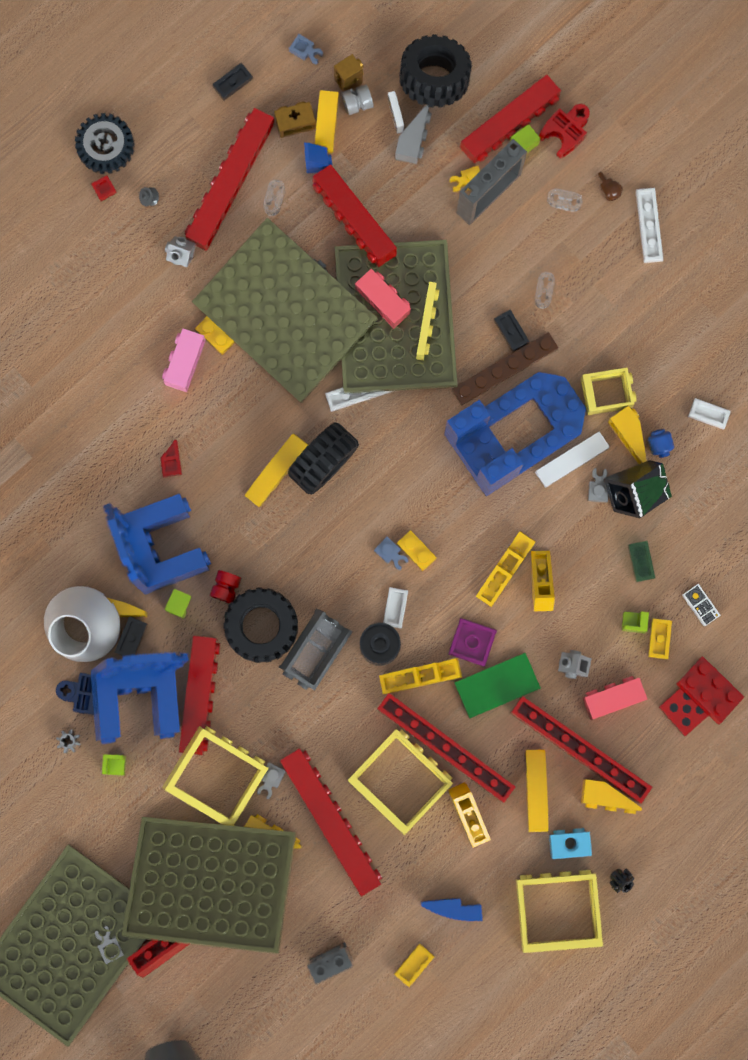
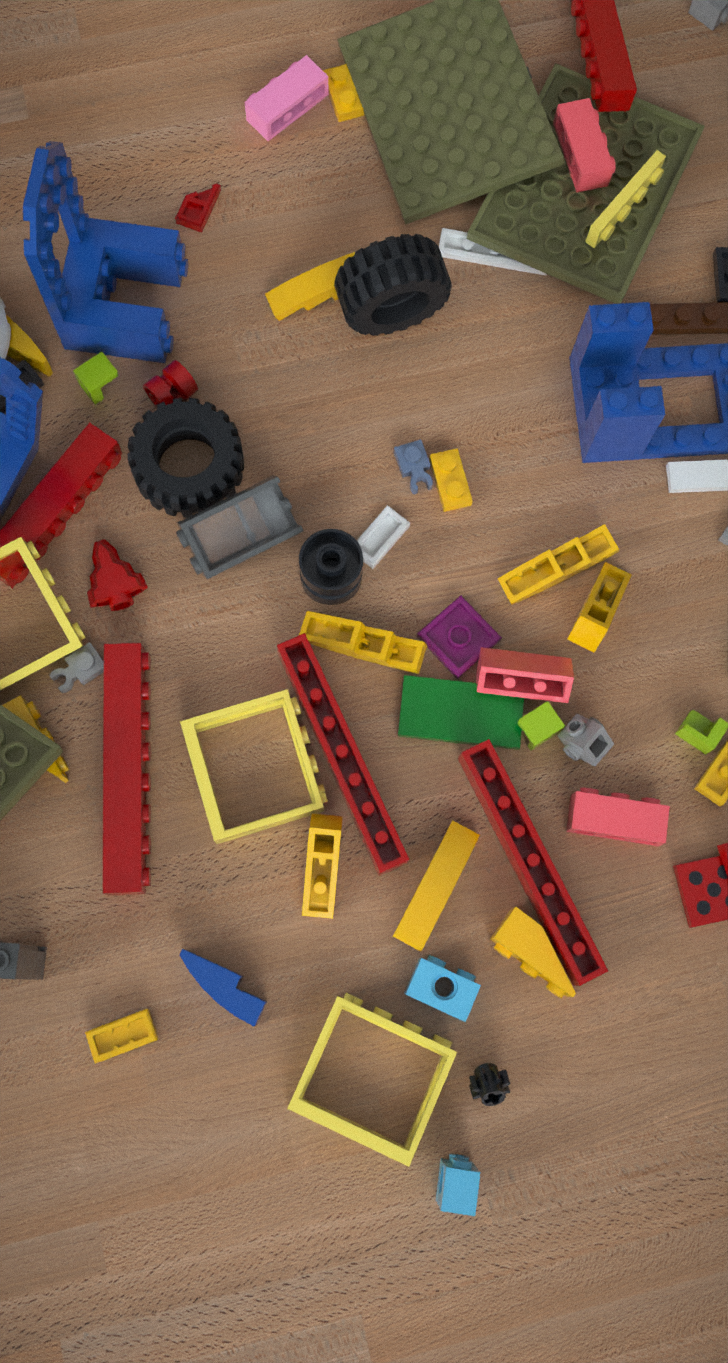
camera: 25 degrees right, 5 degrees down
(259, 719) = (113, 579): none -> red rock
(521, 646) = (524, 675): none -> coral brick
(545, 669) = (540, 725): none -> lime panel
(632, 941) = (458, 1185): none -> medium azure brick

